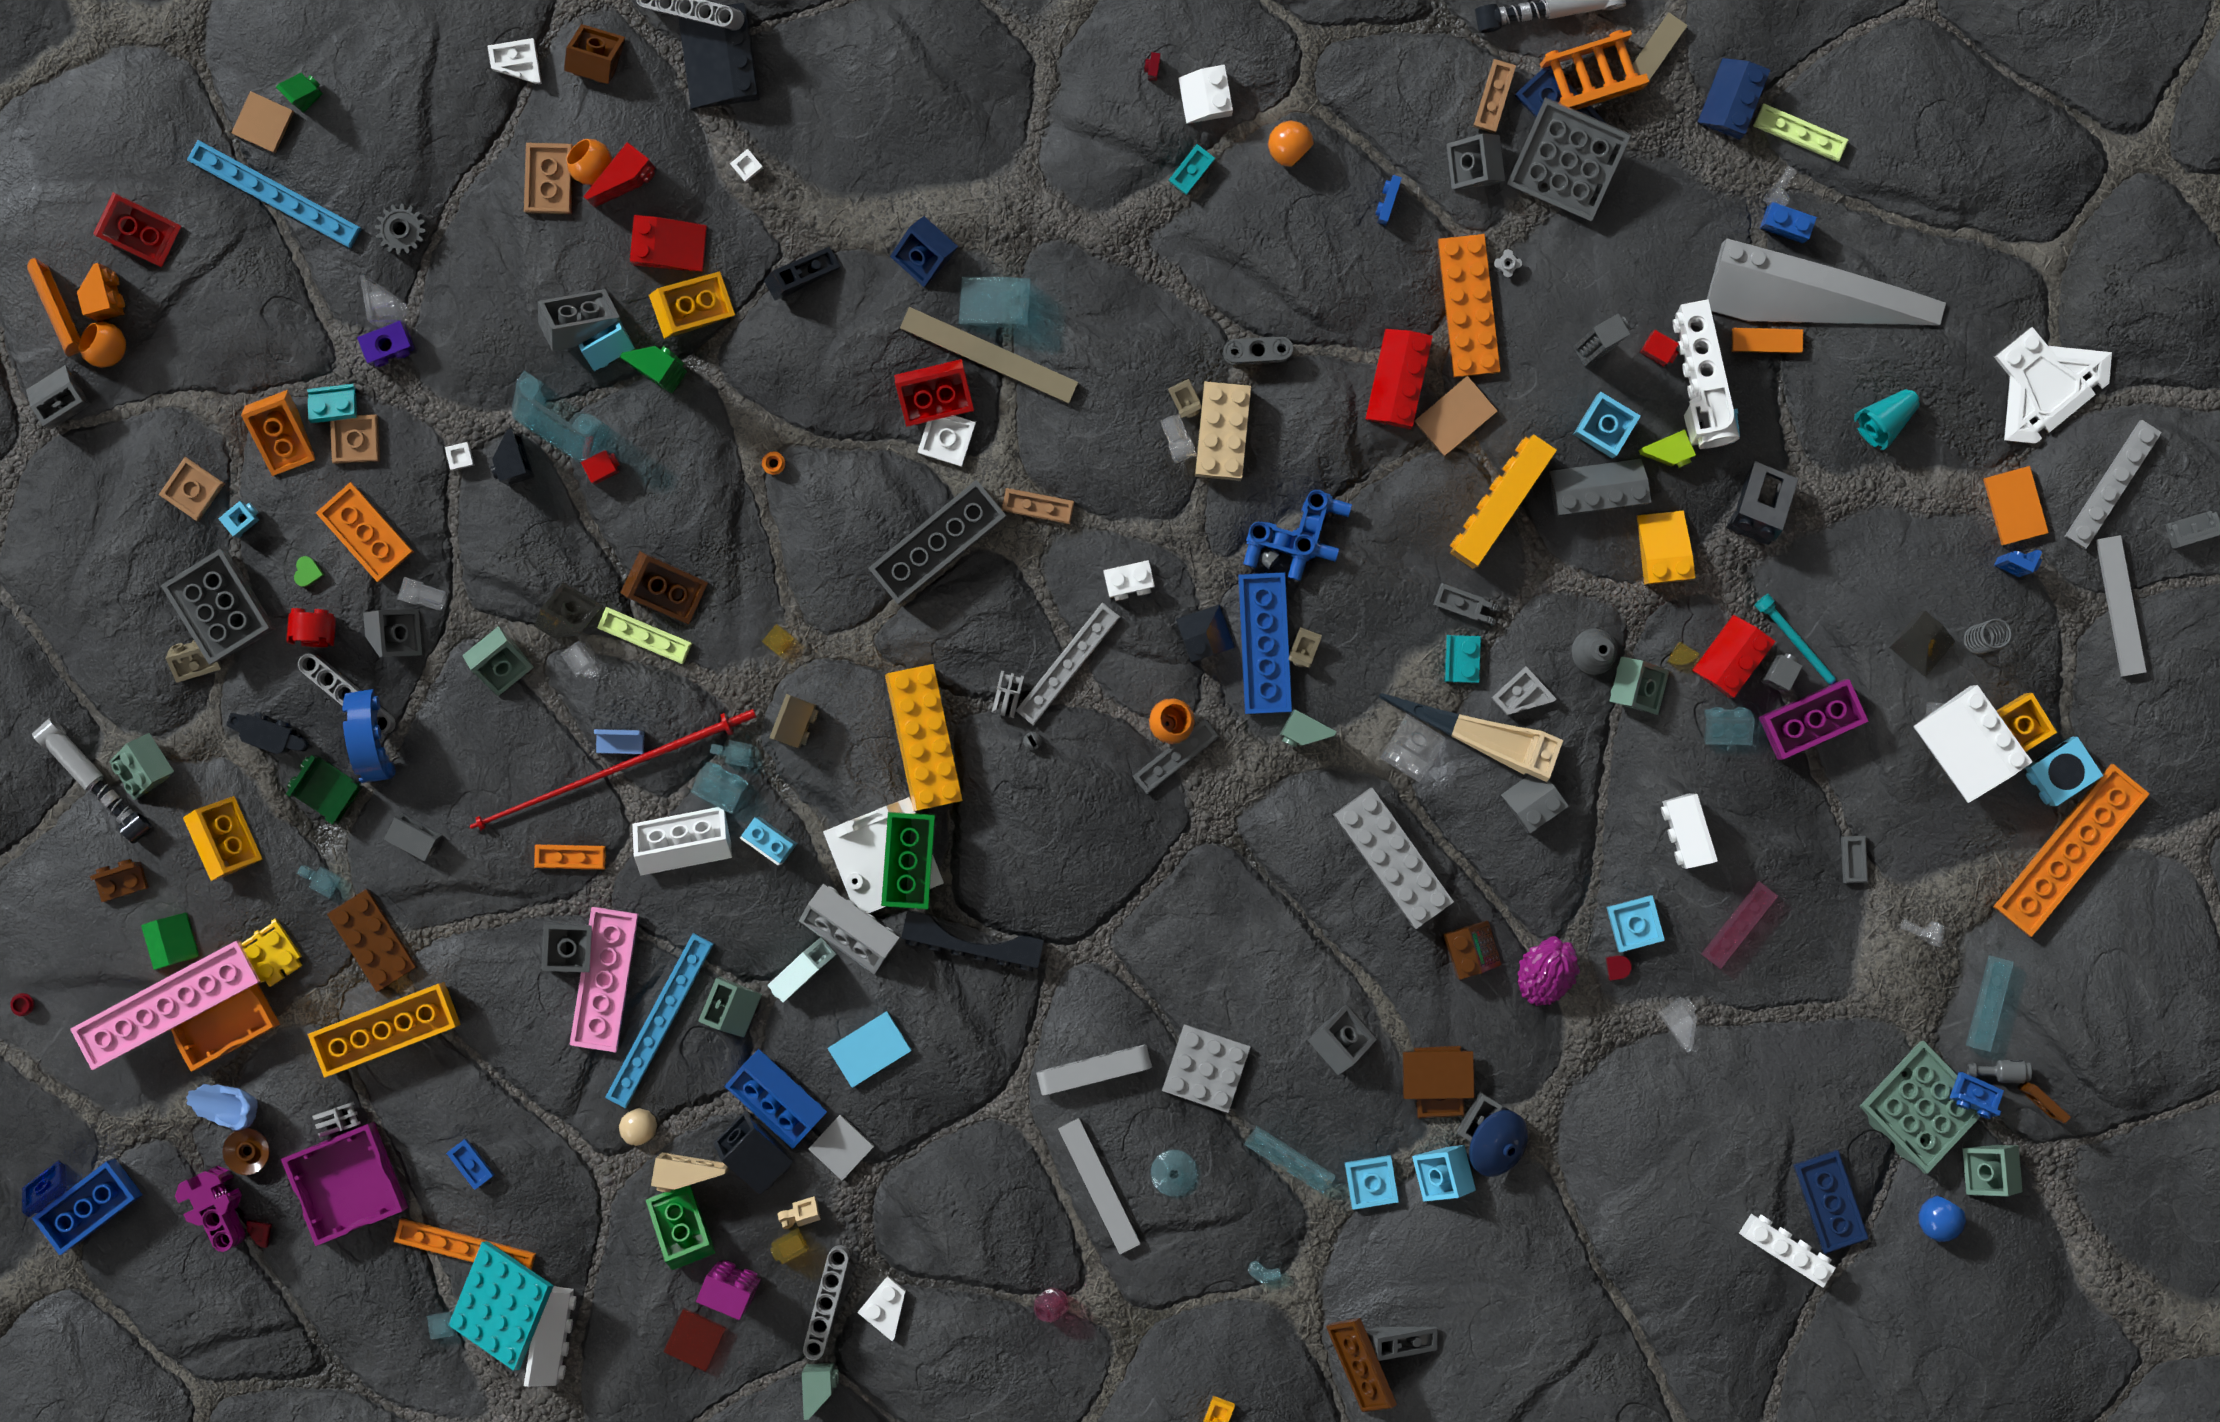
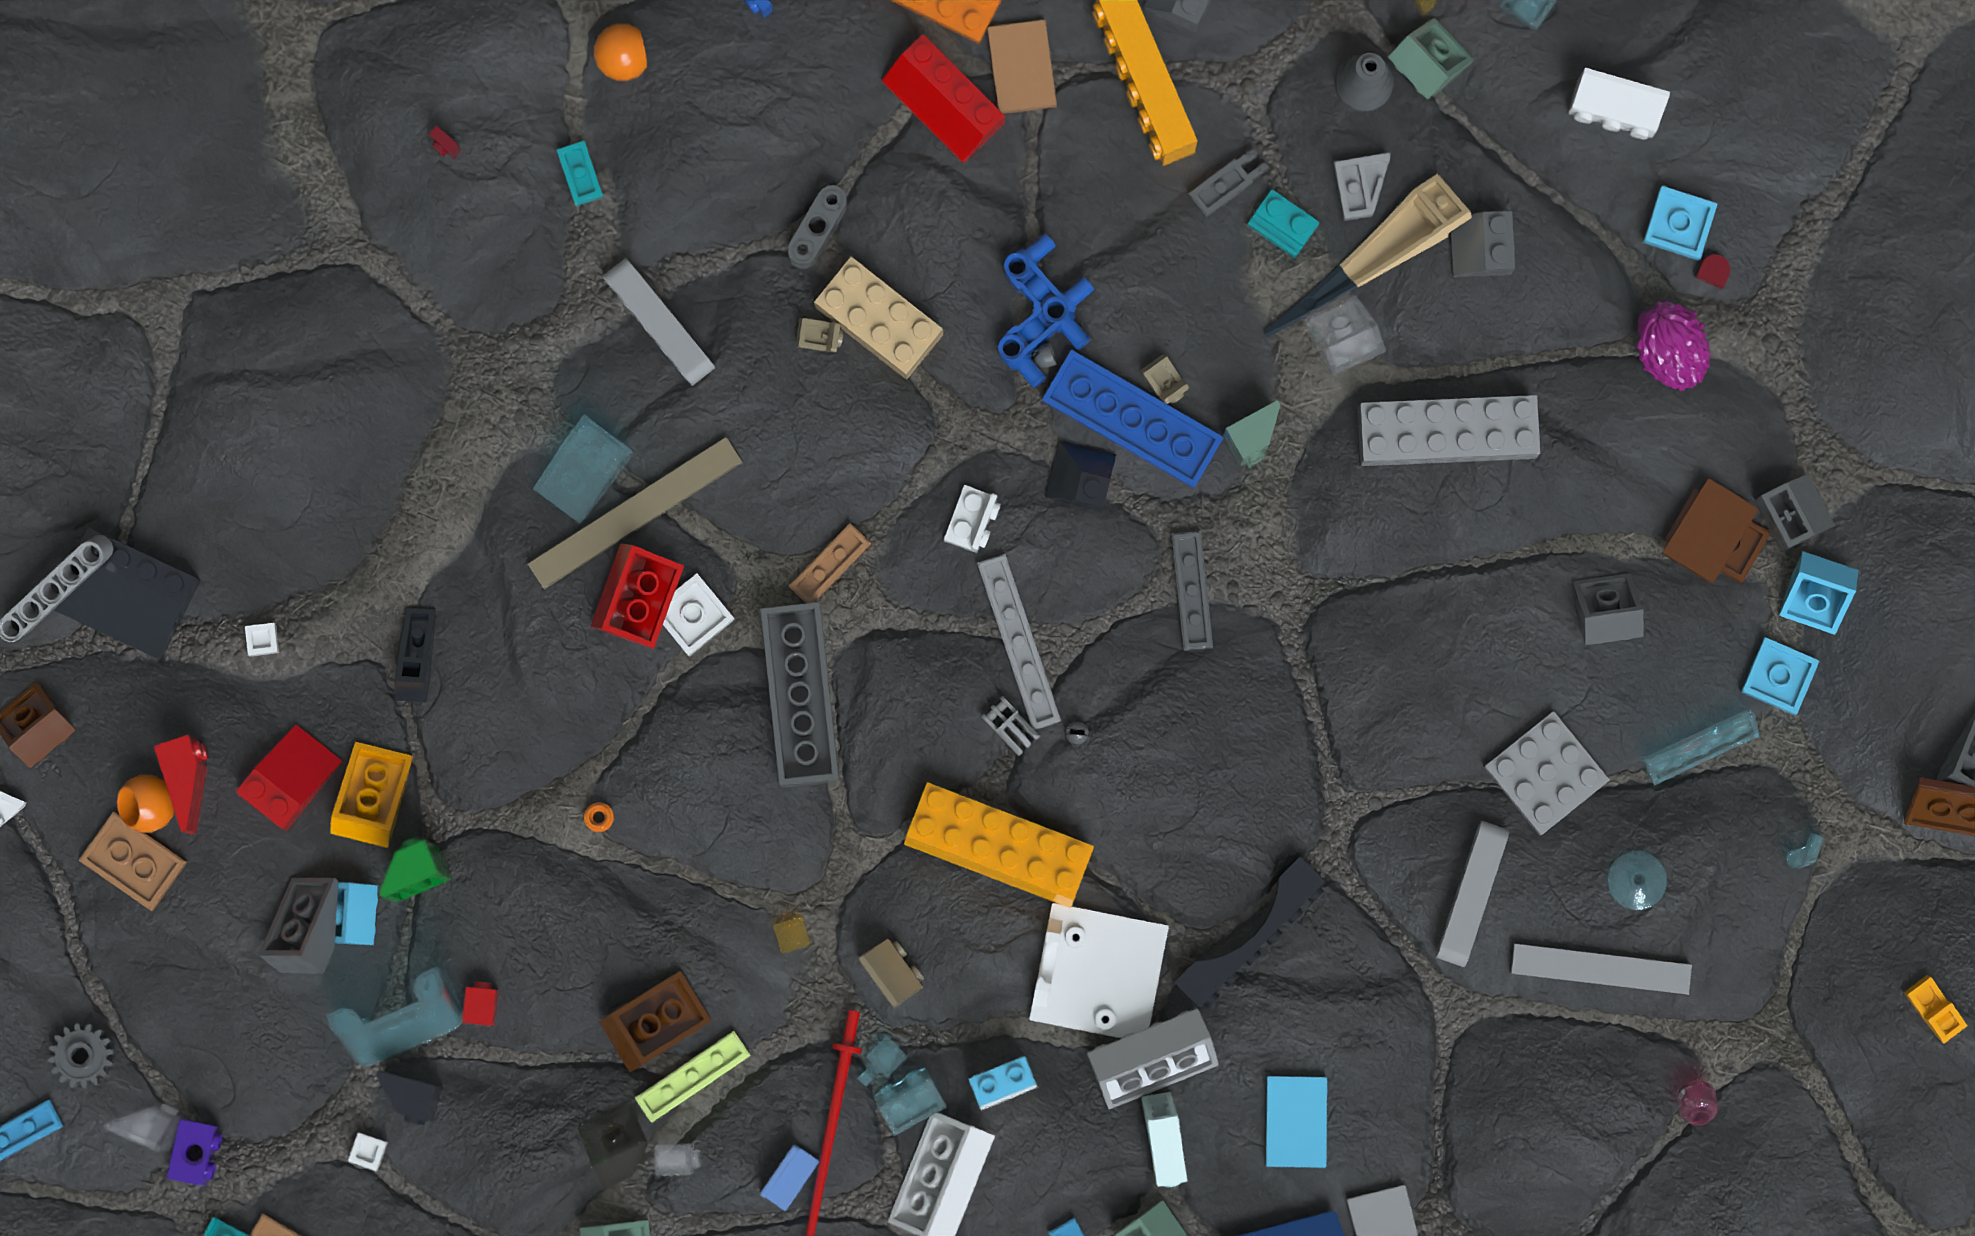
camera: 65 degrees left, 5 degrees down
(908, 860) = (1121, 944): green slope -> none
(923, 251) = (478, 510): dark blue slope -> none
(1126, 287) = (658, 322): none -> light grey beam
(1179, 443) = (863, 372): clear piece -> none
(1179, 727) = (1165, 571): orange helmet -> none
(1205, 94) = (511, 107): white slope -> none
(1472, 950) = (1599, 411): reddish brown slope -> none
(1498, 1143) = (1824, 513): dark blue dish -> none
(1681, 1021) = (1814, 242): clear slope -> none
(1739, 925) = (1750, 116): clear pink plate -> none

